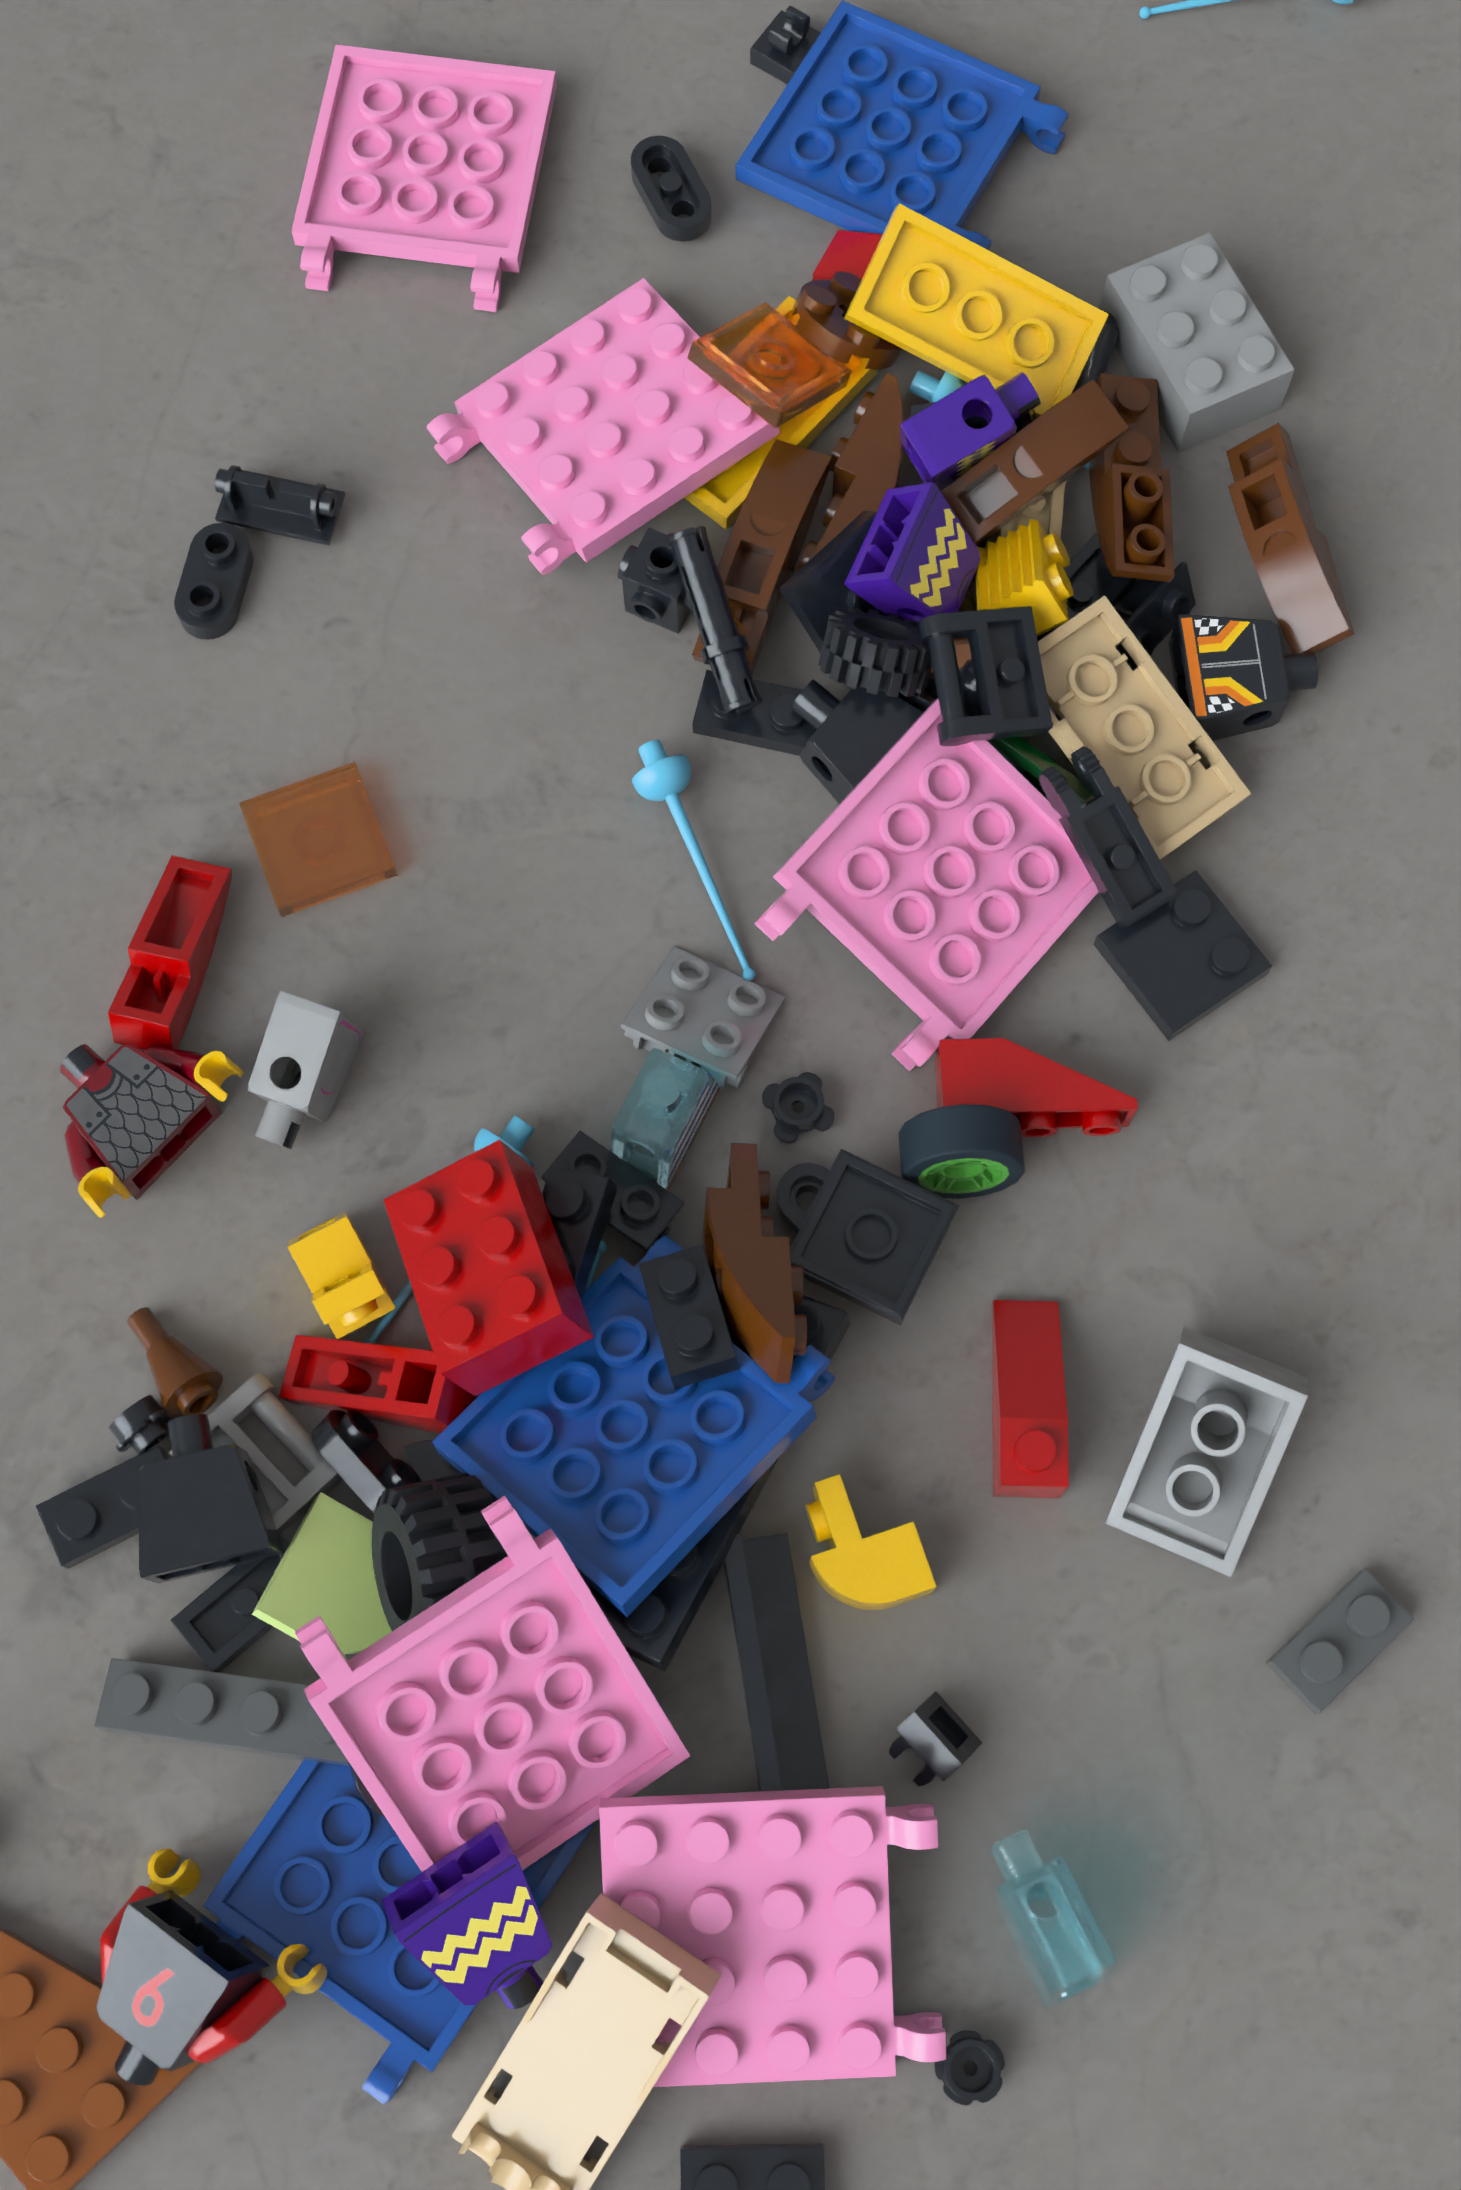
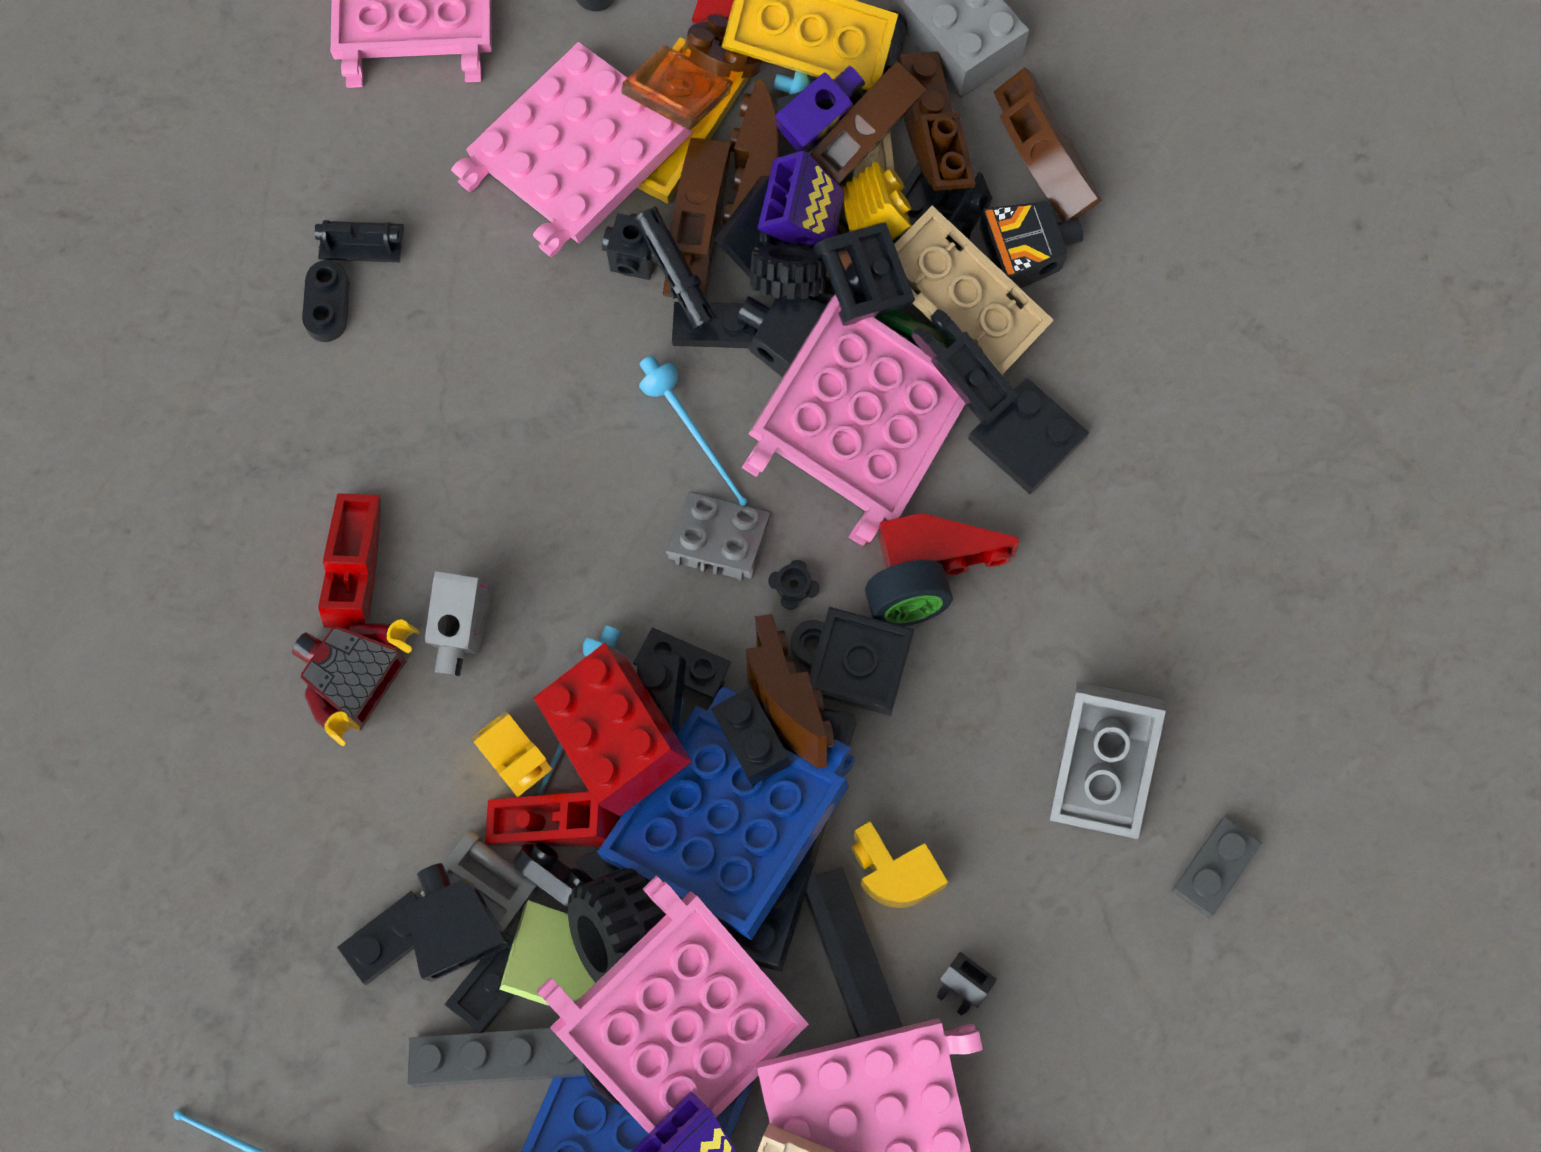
camera: 10 degrees left, 0 degrees up
(141, 1425) = (397, 880): black plate -> none
(182, 1378) = (417, 842): reddish brown cone -> none
(318, 839) = (434, 464): clear orange tile -> none
(663, 1115) = (706, 606): clear light blue torso -> none
(1028, 1401) = (984, 750): red slope -> none
(1060, 1951) = (1073, 1103): clear light blue torso -> none

